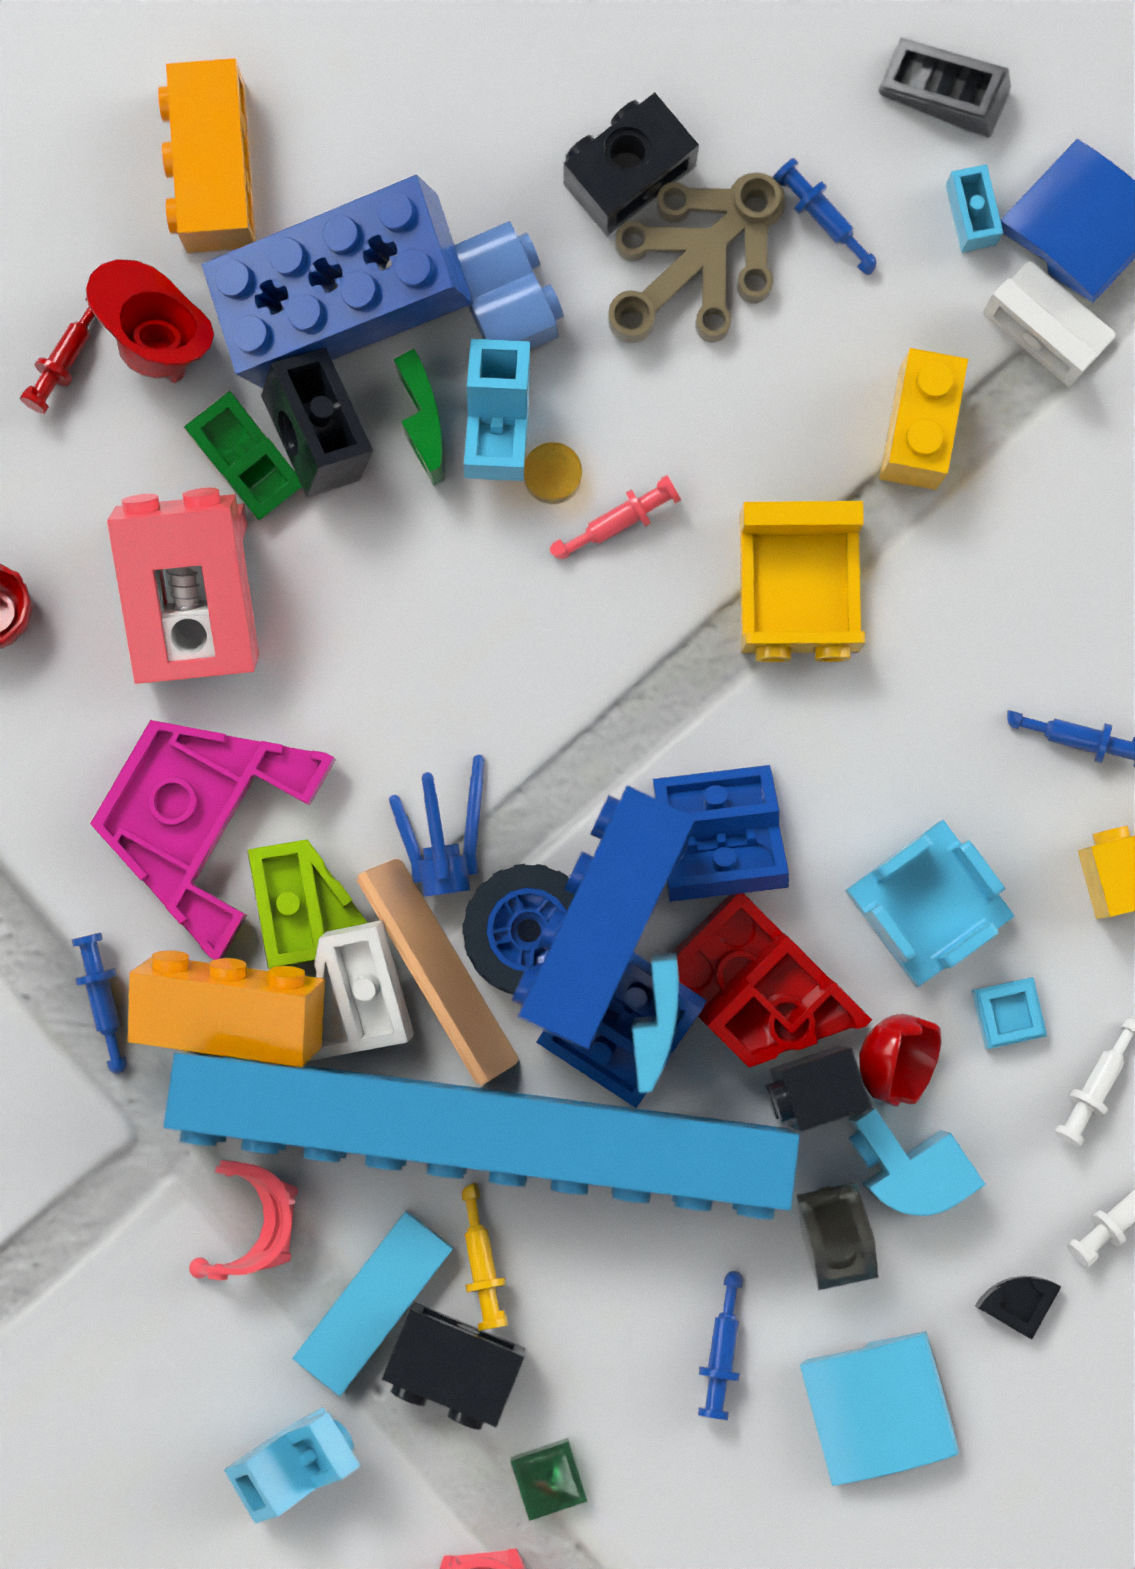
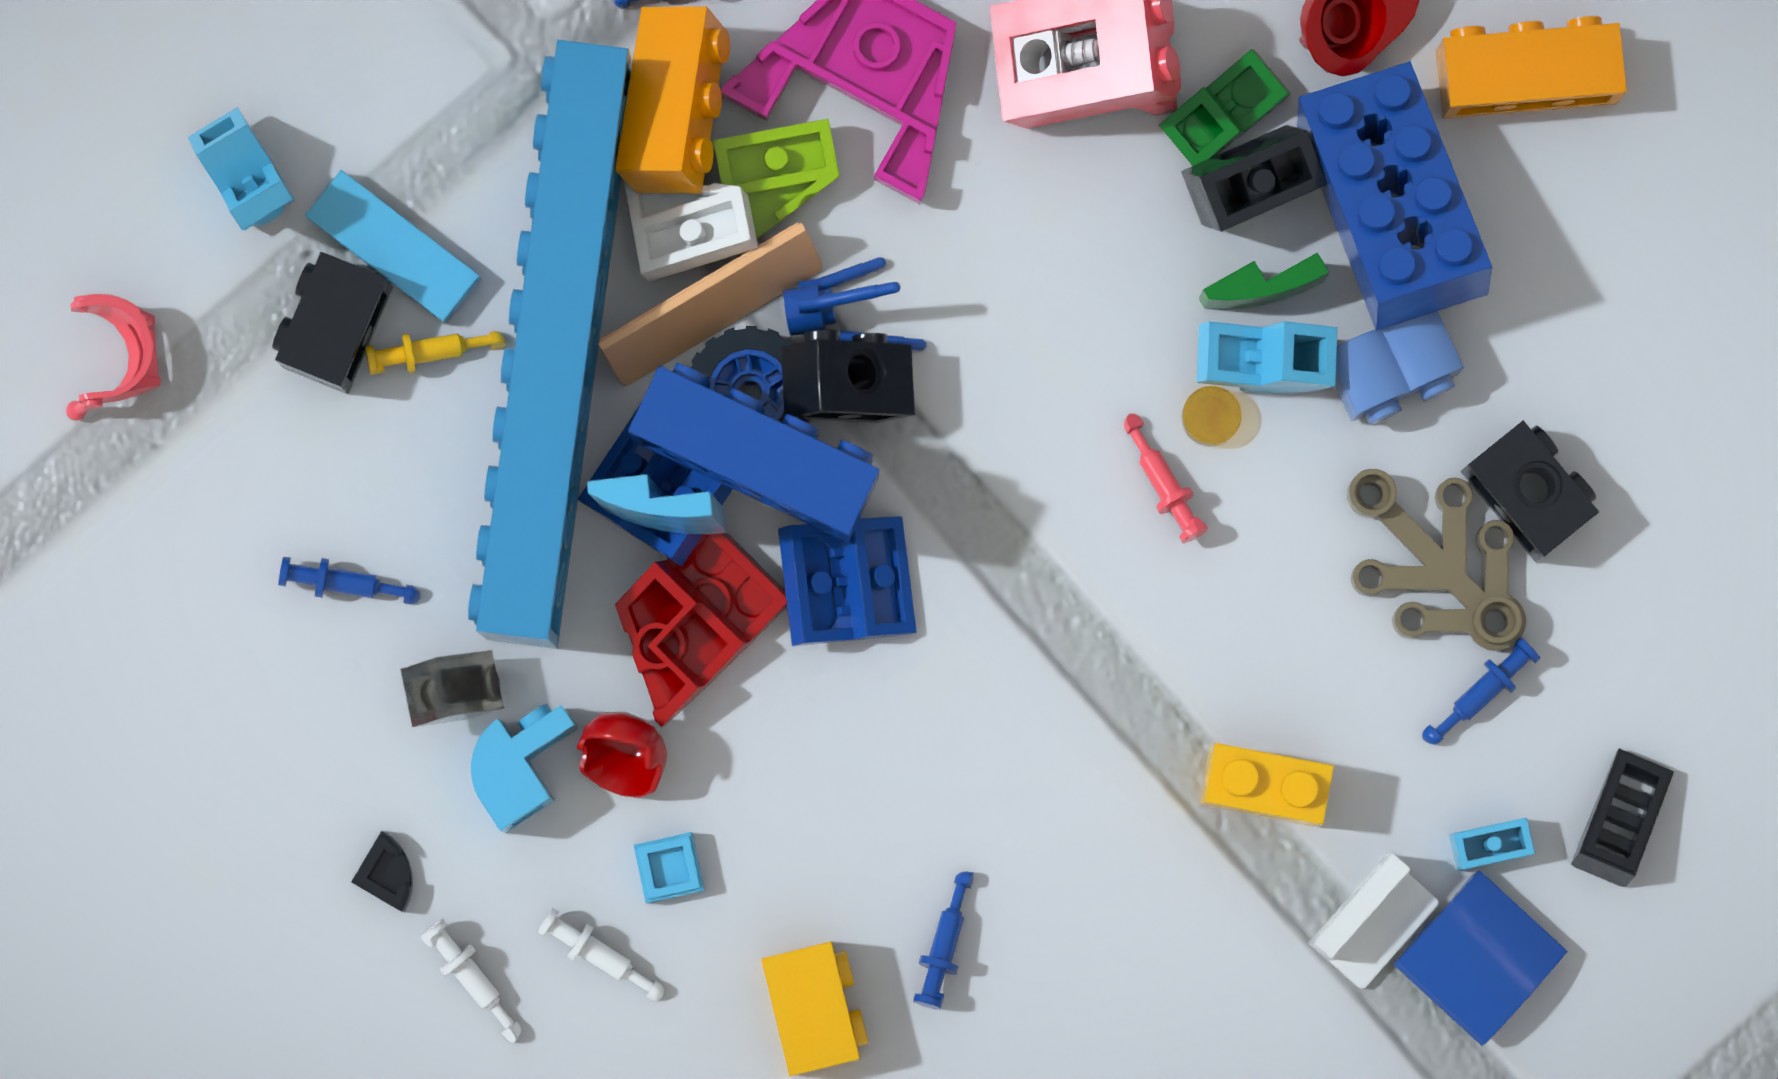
camera: 90 degrees right, 0 degrees up
(275, 1236) = (458, 153): coral helmet -> none
(519, 829) = (847, 378): none -> black brick
(548, 1479) = (224, 415): clear green tile -> none
(800, 579) = (1100, 663): yellow panel -> none
(817, 1089) = (593, 666): black brick -> none
(879, 1408) = (287, 732): medium azure slope -> none
(932, 902) = (777, 788): medium azure panel -> none

